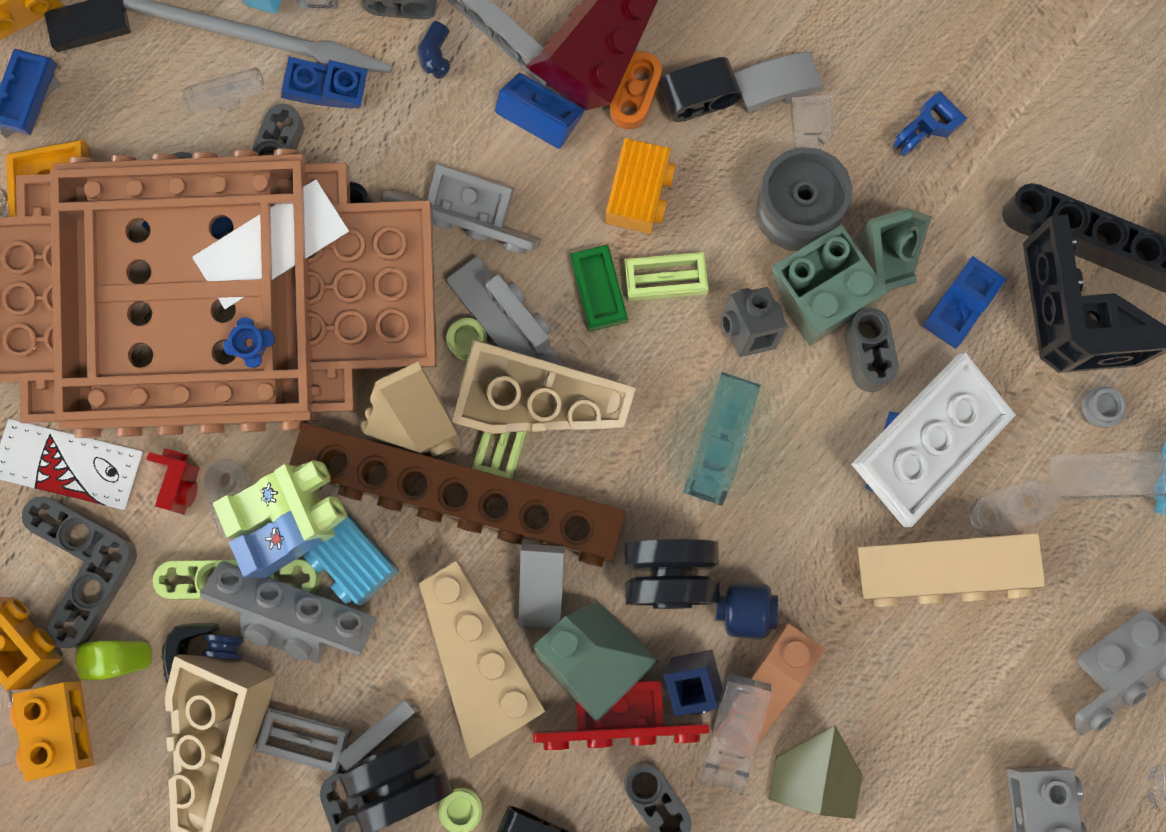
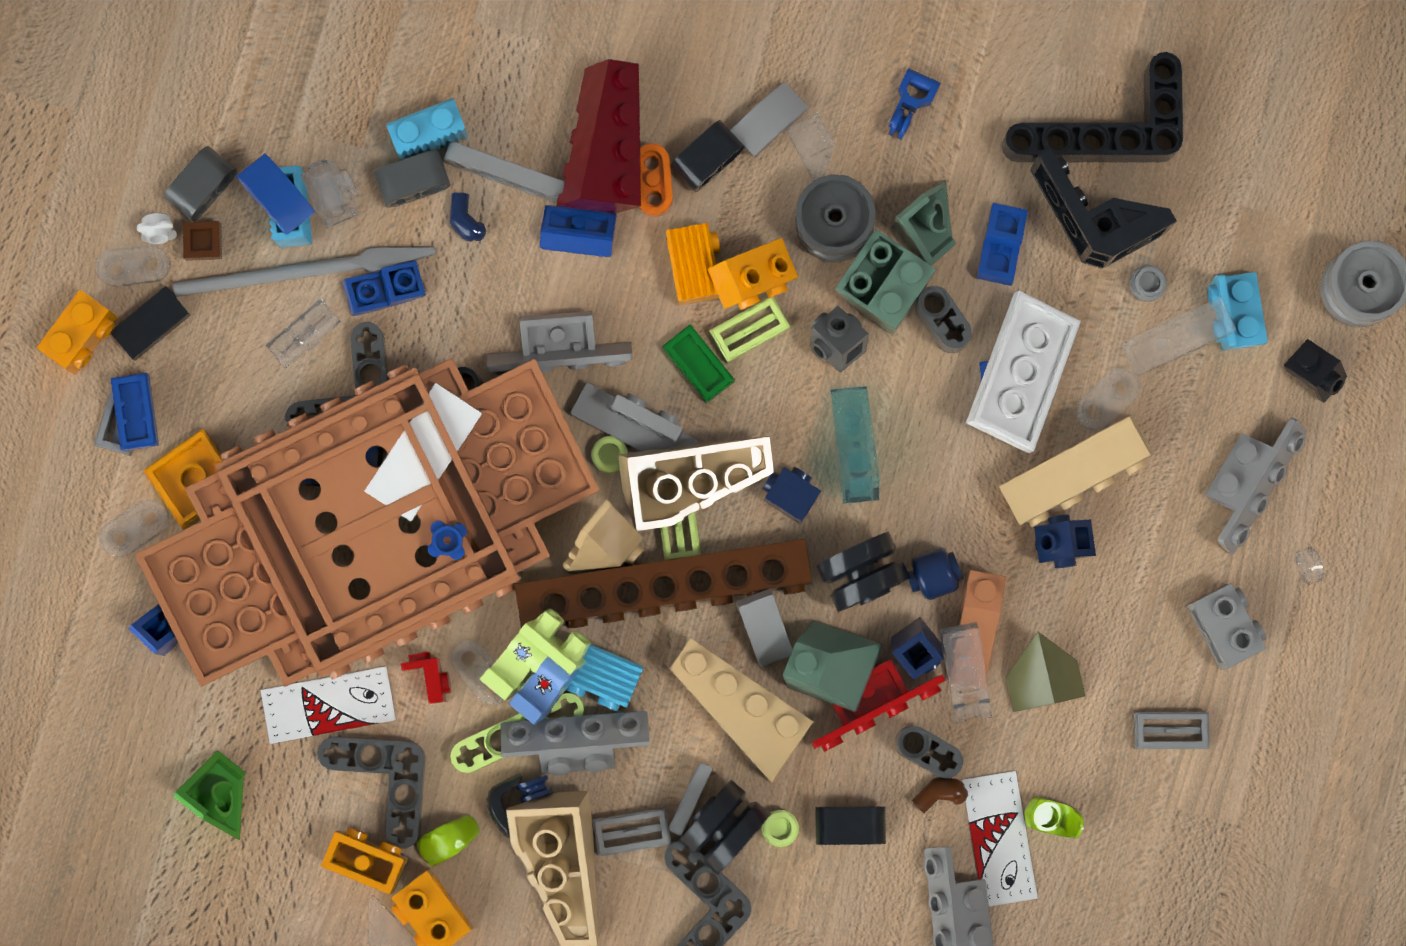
camera: 30 degrees left, 5 degrees up
(633, 458) = (791, 493): none -> dark blue brick
(694, 217) = (752, 274): none -> light orange brick
(904, 638) = (1064, 541): none -> dark blue brick

